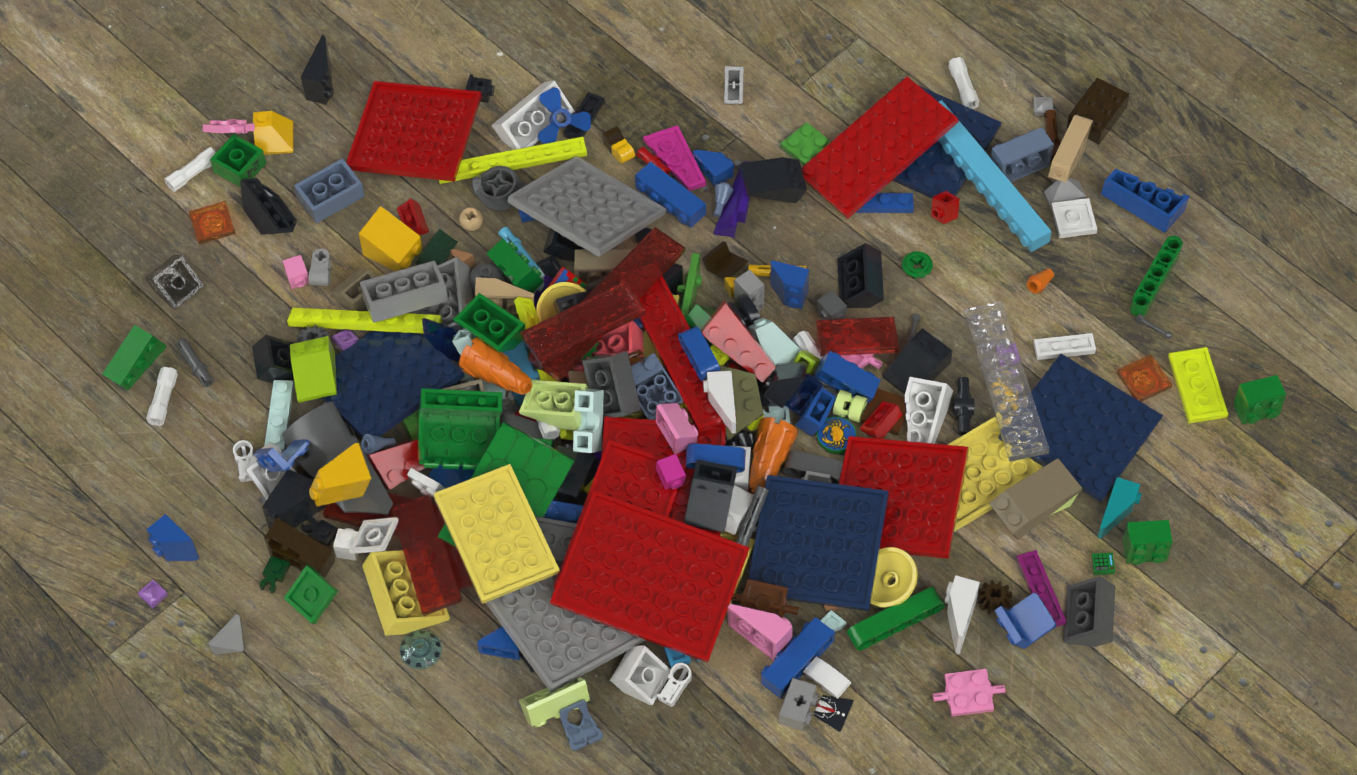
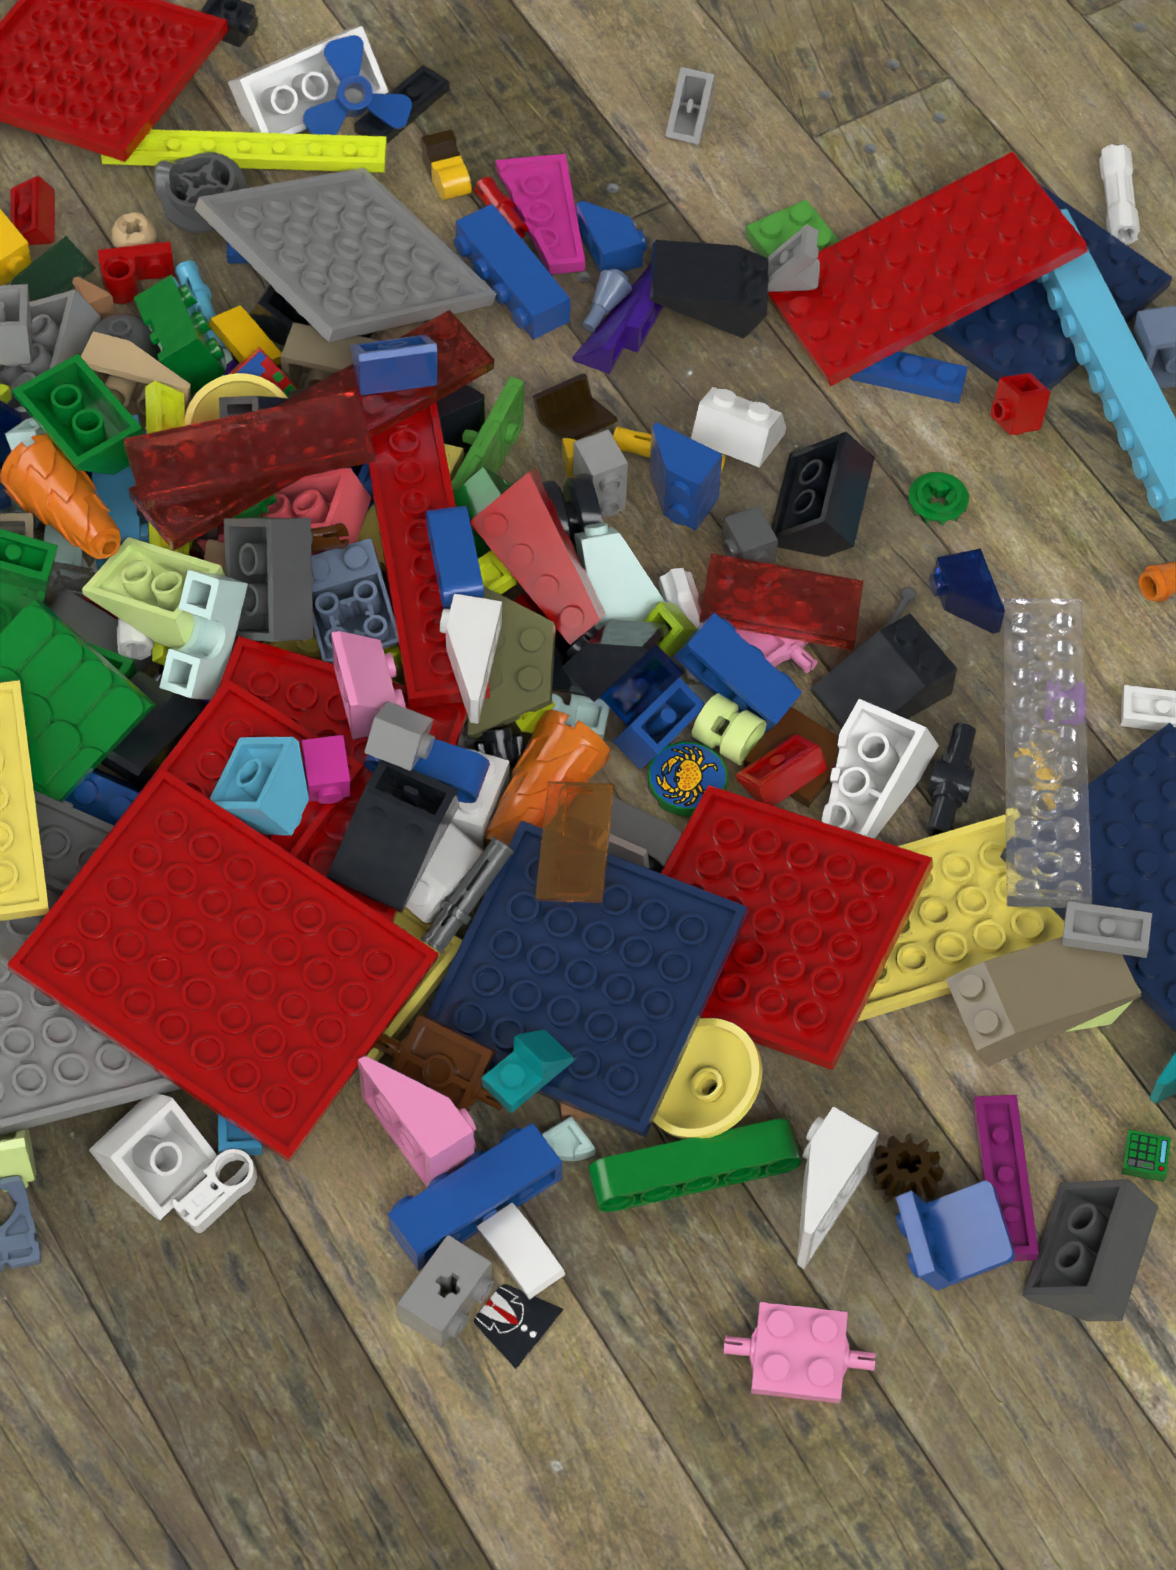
camera: 10 degrees right, 0 degrees up
(475, 236) = (125, 266): none -> red plate
(546, 261) = (242, 334): none -> yellow tile
(639, 261) = (395, 364): none -> blue slope
(644, 486) = (264, 784): none -> medium azure slope
(703, 448) = (400, 736): none -> light grey brick
(797, 479) = (575, 842): none -> clear orange piece
(805, 593) = (527, 1069): none -> teal slope
(809, 252) = (738, 426): none -> white slope
(813, 159) = (795, 263): none -> light grey slope
(945, 308) = (968, 589): none -> clear blue slope
(1059, 461) = (1107, 929): none -> light grey plate

